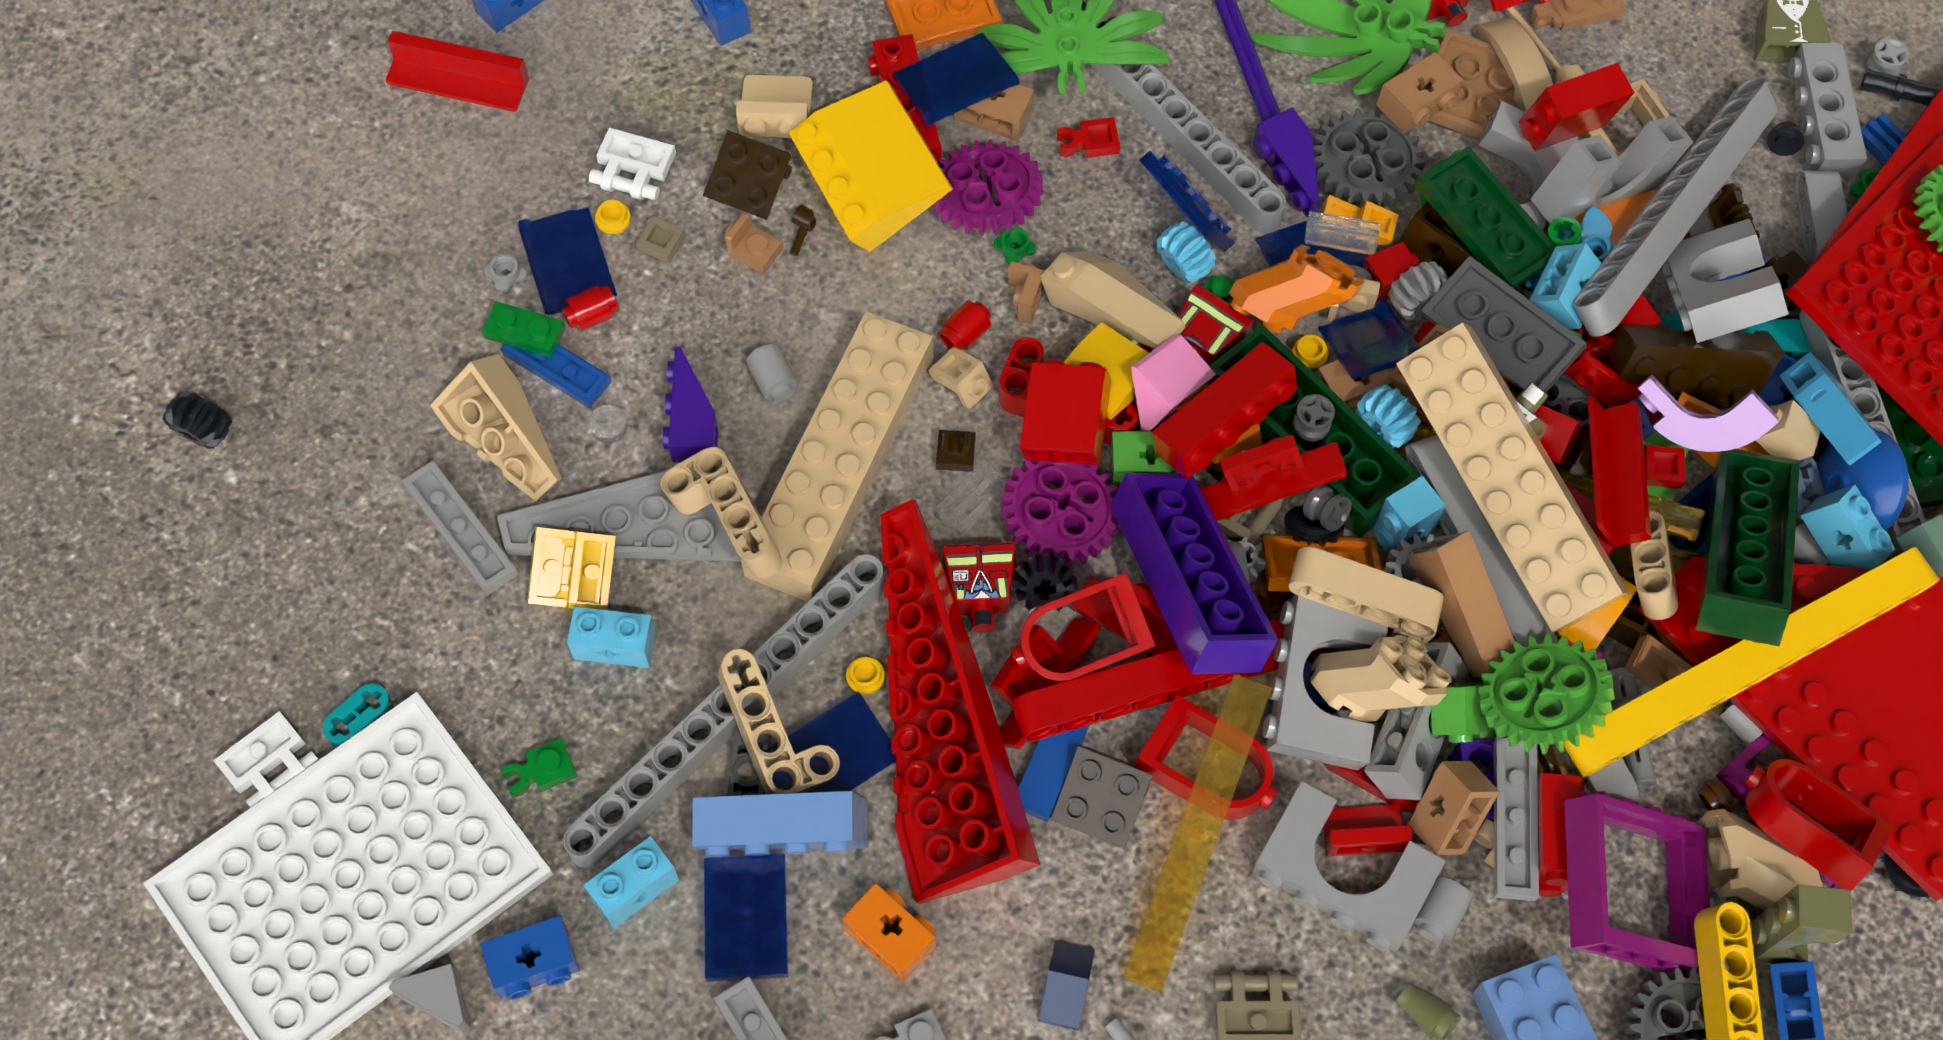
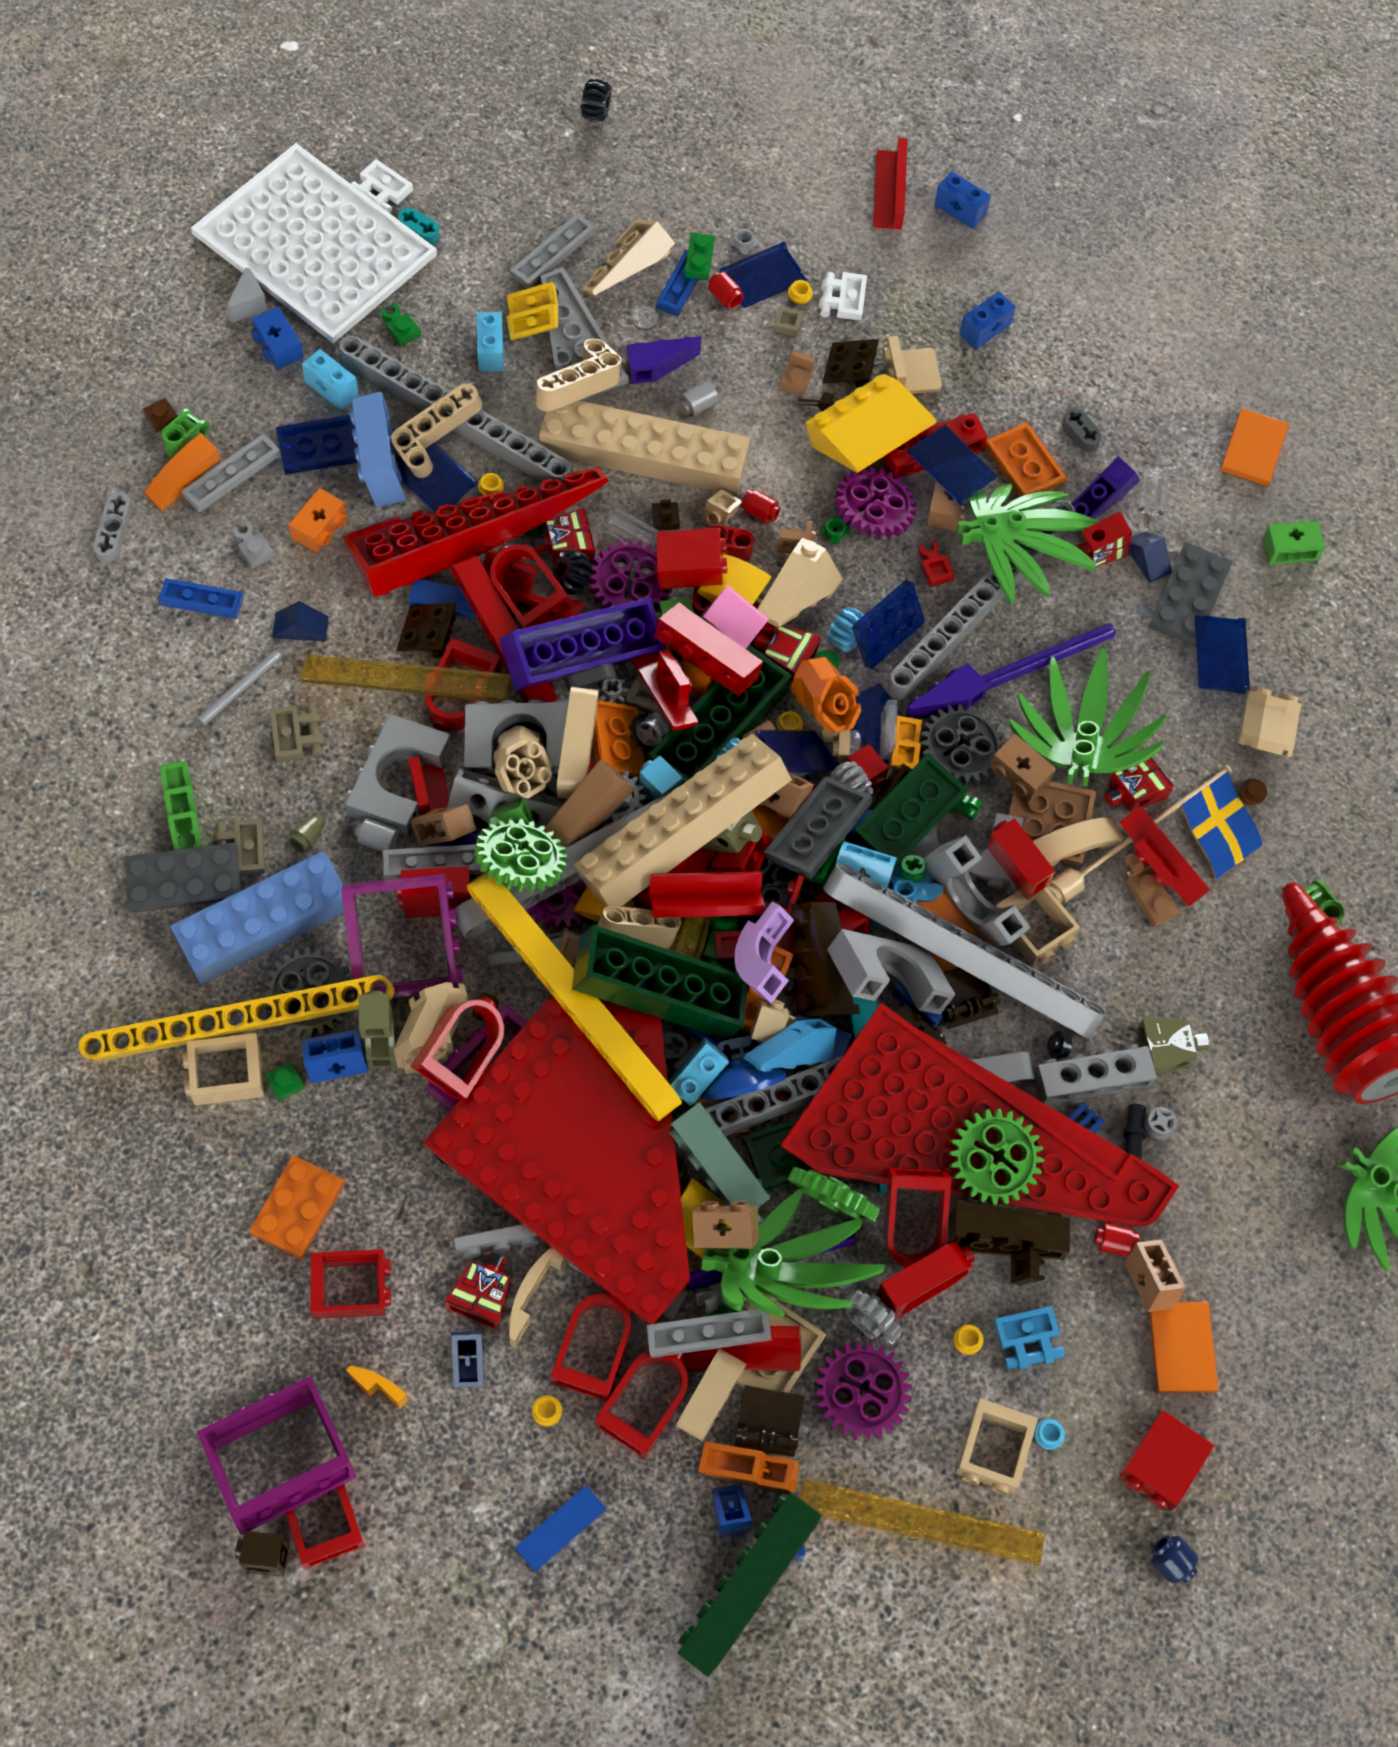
camera: 75 degrees right, 0 degrees up
(1316, 408) = (718, 701): dark grey wheel -> none

